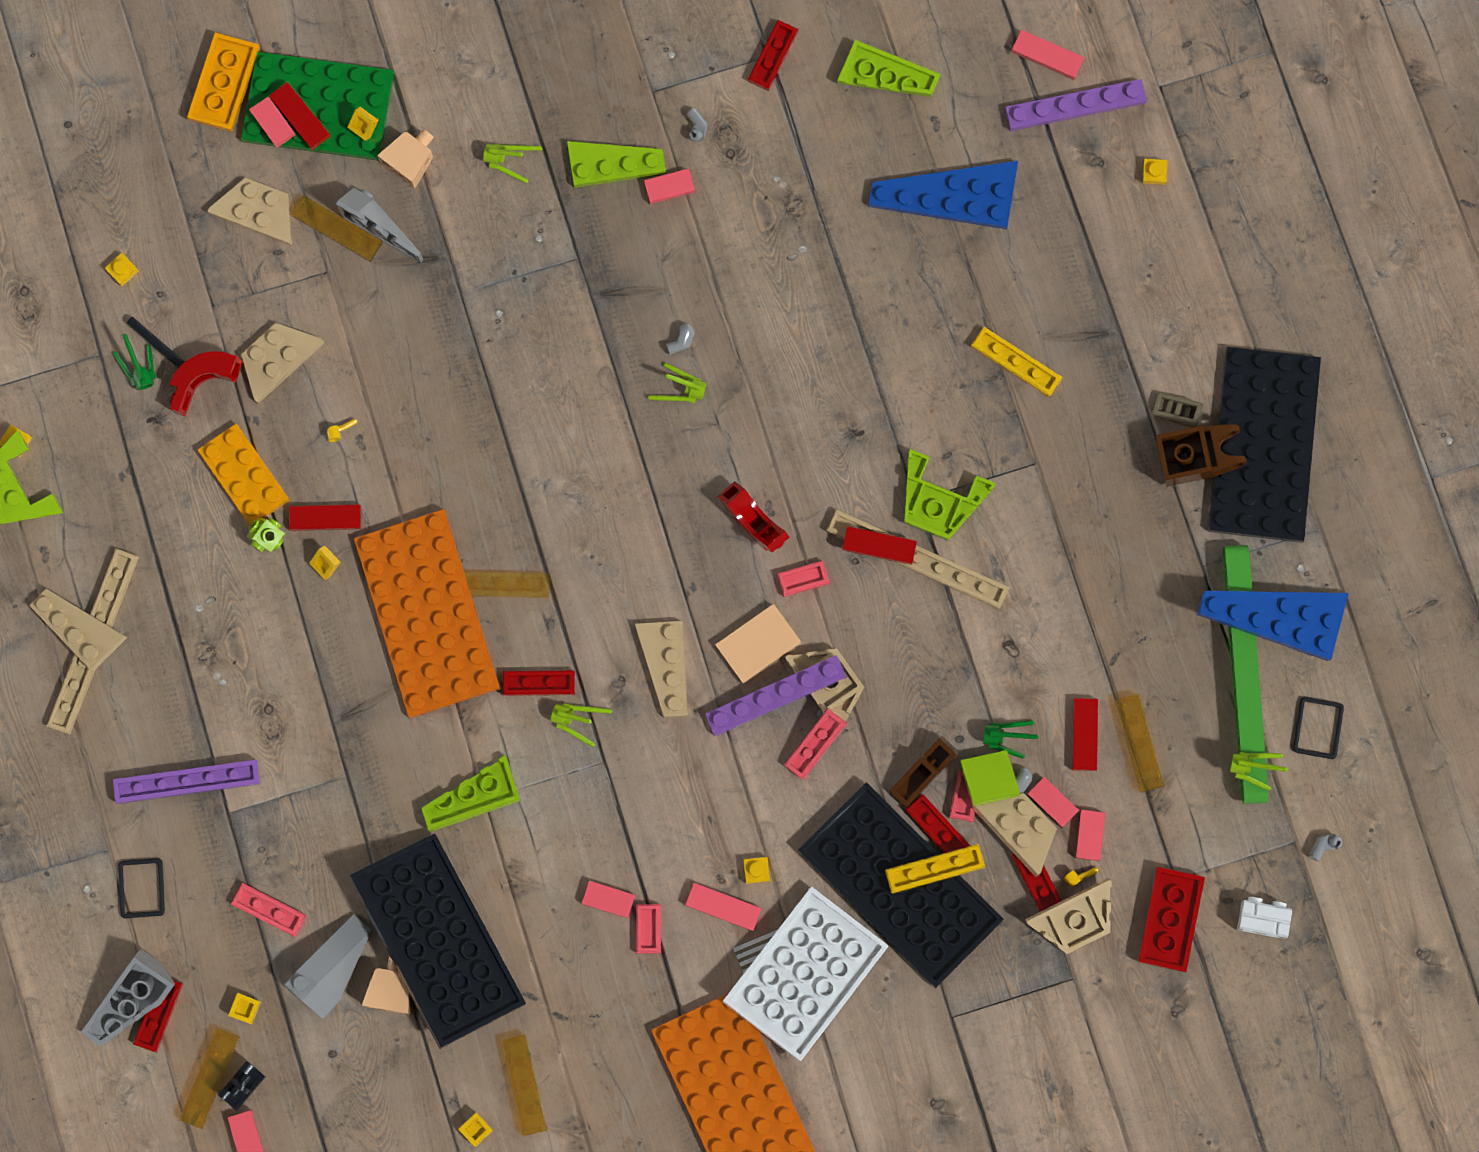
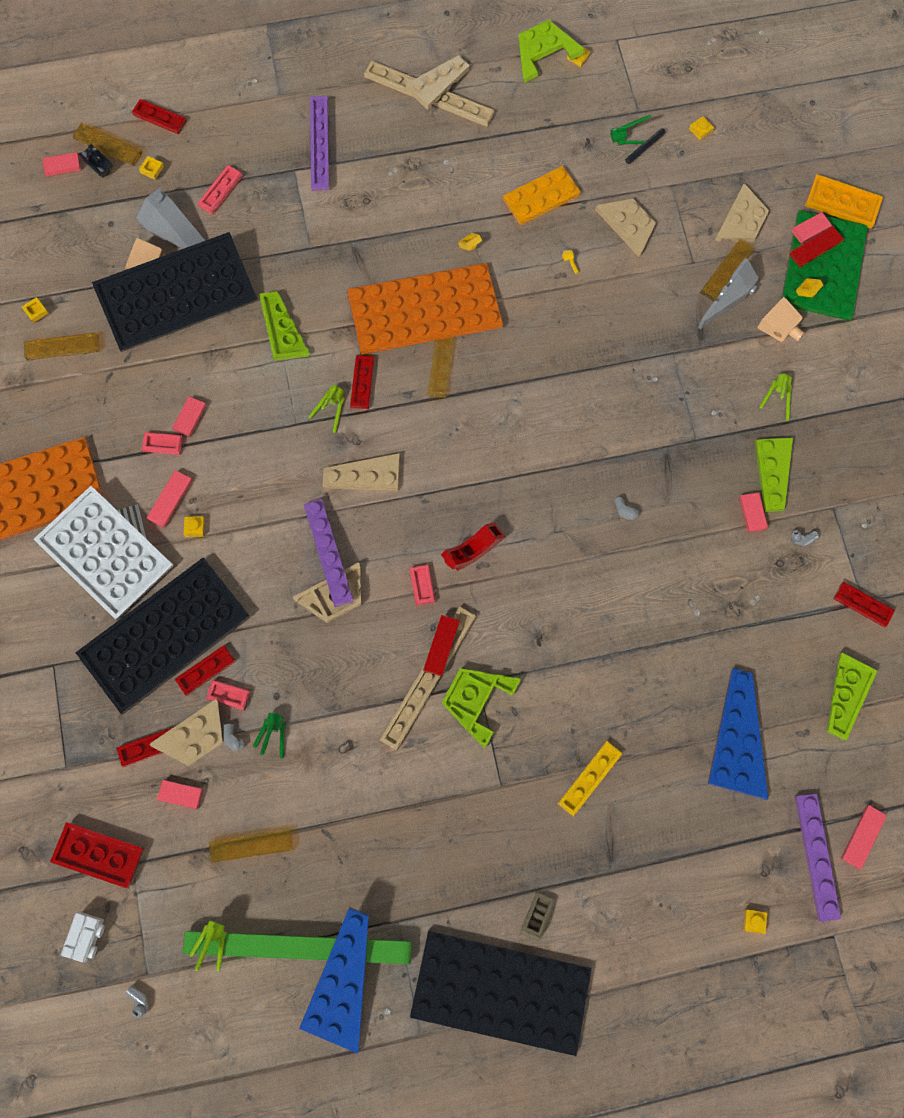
camera: 90 degrees right, 5 degrees down
(134, 994) = (172, 97): light grey wedge -> none
(161, 888) = (249, 124): black piece -> none
(198, 370) = (619, 165): red arch -> none
(257, 535) = (499, 203): lime brick -> none
(324, 517) = (504, 246): red tile -> none
(694, 387) = (584, 515): lime plant -> none
(758, 644) = (373, 545): light nougat tile -> none
(815, 744) = (285, 579): coral tile -> none
(924, 771) = (252, 663): reddish brown slope -> none
(935, 868) = (169, 661): yellow tile -> none
(989, 778) = (237, 714): lime tile -> none
(1053, 802) = (212, 766): coral tile -> none
(1073, 879) = (145, 776): yellow hand -> none
(1076, 919) = (110, 773): tan wing -> none
(1085, 734) = (264, 800): red tile -> none
(1204, 447) = (497, 933): reddish brown brick -> none
(1298, 728) = (237, 1027): black piece -> none

